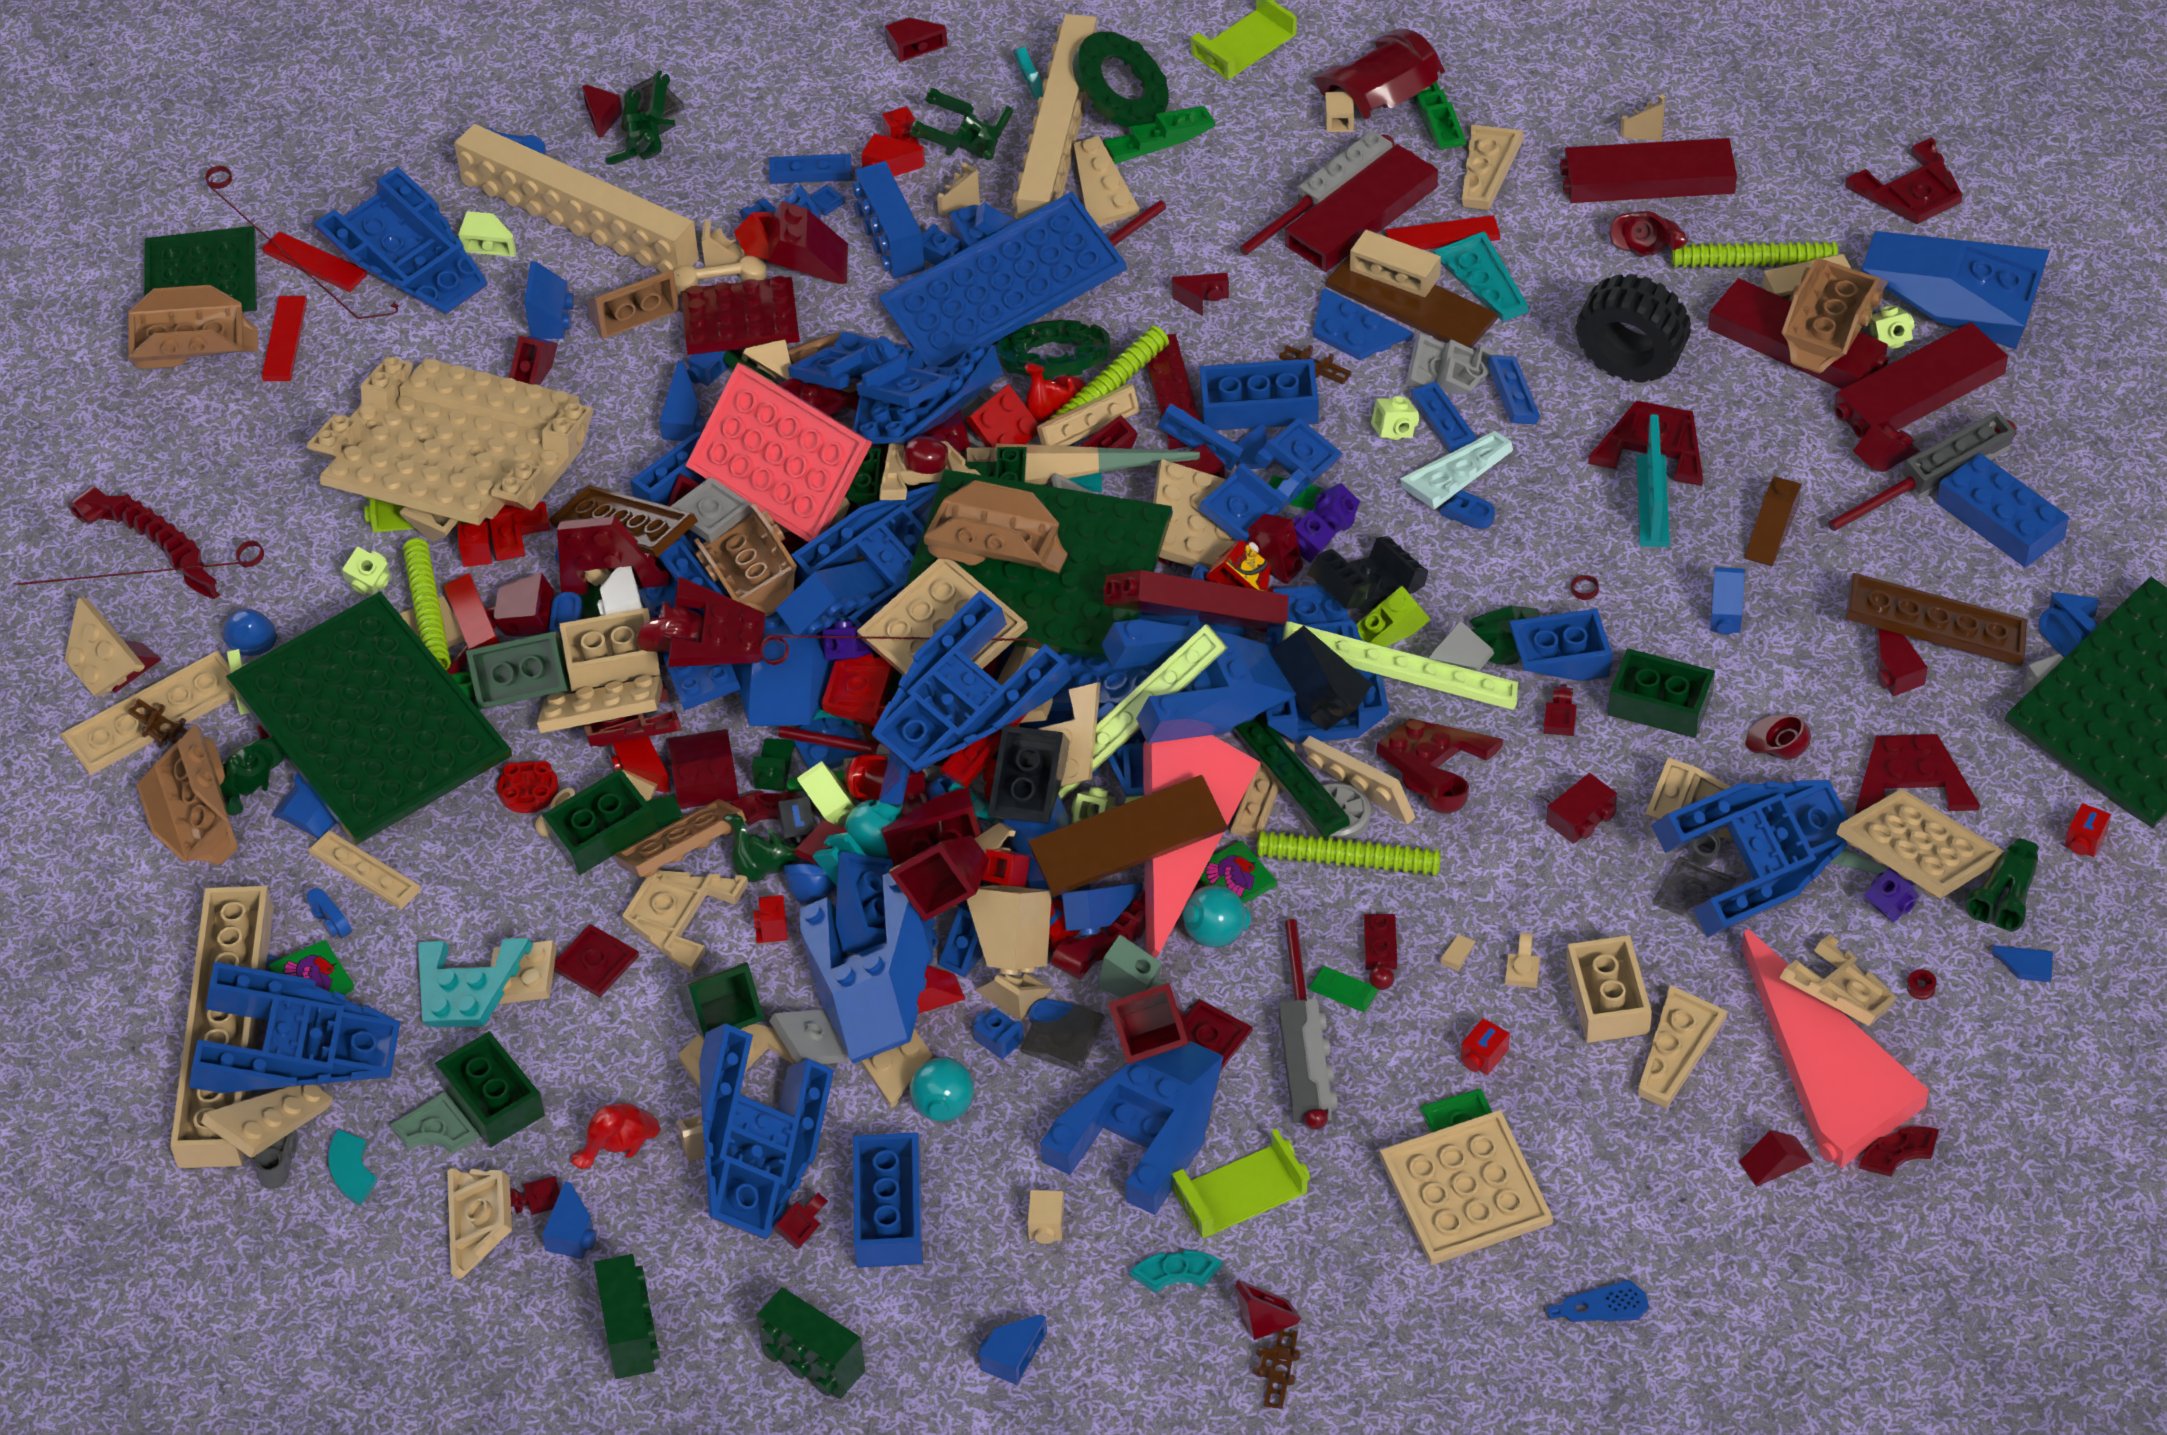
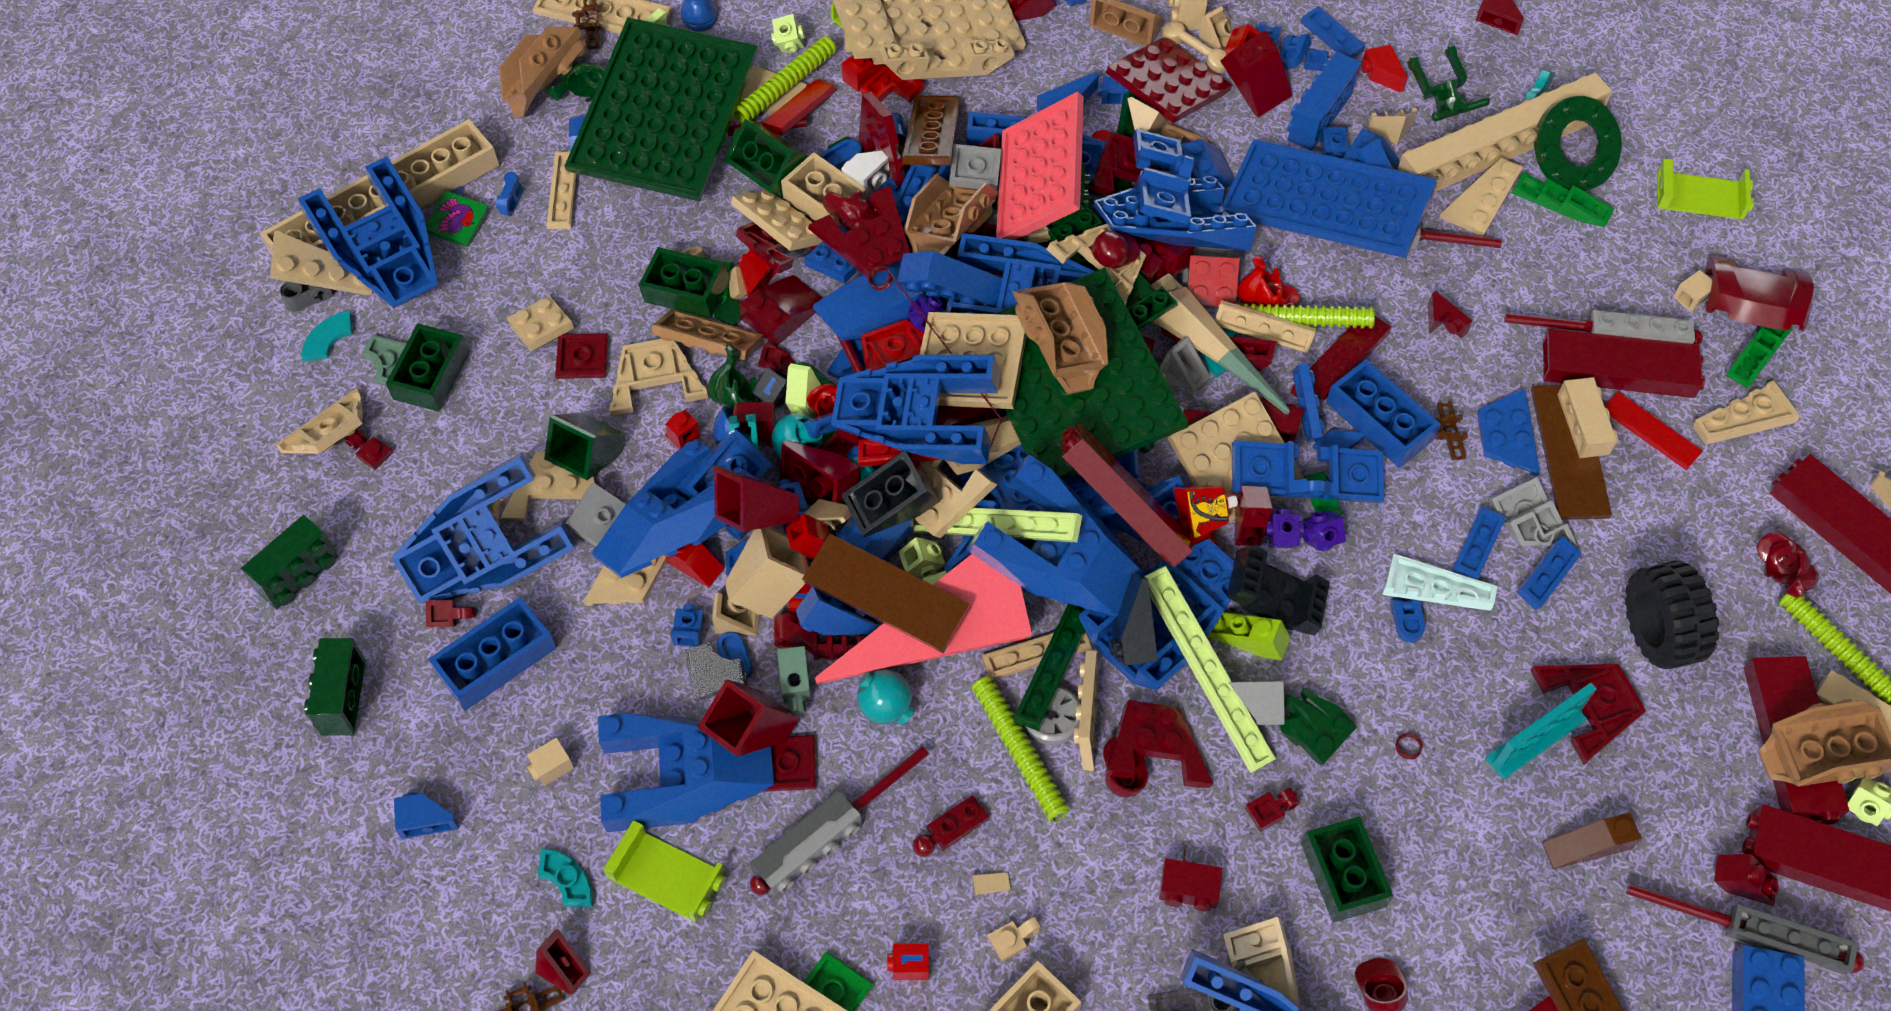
camera: 50 degrees right, 10 degrees up
(465, 994) = (497, 303): teal wing -> none
(523, 606) = (828, 128): dark red torso -> none
(527, 786) = (693, 227): red tile -> none
(569, 1226) = (355, 482): blue slope -> none
(616, 1130) = (443, 459): red piece -> none
(773, 766) = (813, 347): dark green bracket -> none
(898, 124) = (1413, 48): red brick -> none
(942, 1089) = (611, 624): teal brick -> none
(1092, 349) = (1334, 266): dark green plate -> none
(1239, 871) = (942, 686): tile -> none
(1343, 988) = (897, 825): green tile -> none
(1394, 418) = (1444, 508): yellowish green brick -> none
(1484, 275) = (1639, 482): teal wing -> none
(1564, 645) = (1327, 767): blue slope -> none
(1727, 600) = (1476, 859): blue slope -> none

